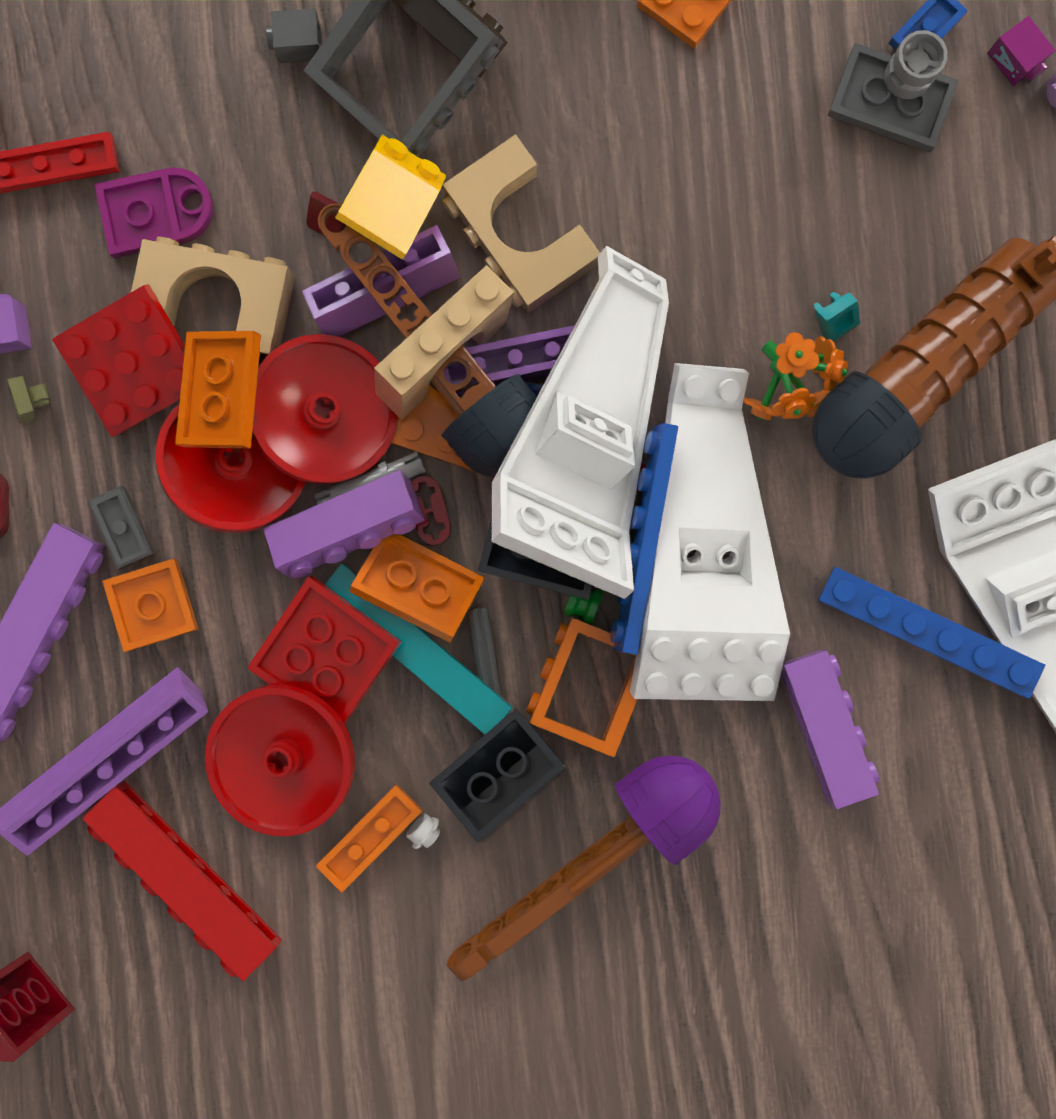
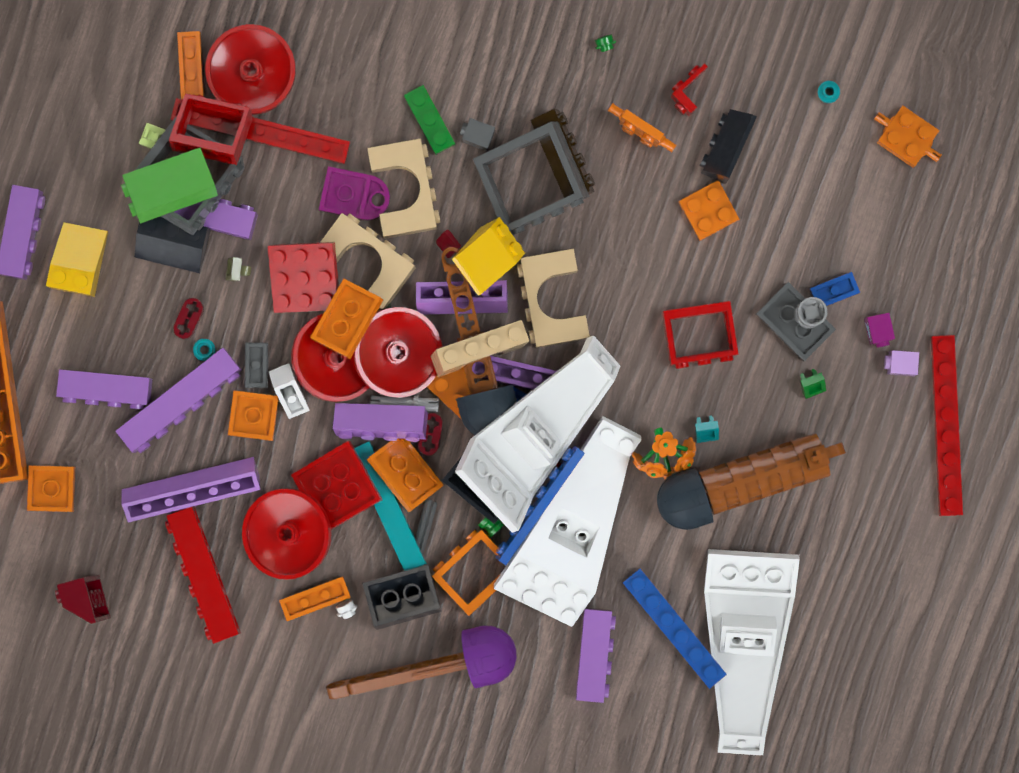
camera: 25 degrees right, 0 degrees up
(22, 538) = (197, 349): none -> teal plate
(186, 543) = (288, 391): none -> white slope
(208, 116) = (409, 157): none -> tan arch
(215, 50) = (429, 120): none -> green plate
(780, 125) = (705, 358): none -> red window
(963, 177) = (812, 385): none -> green tile

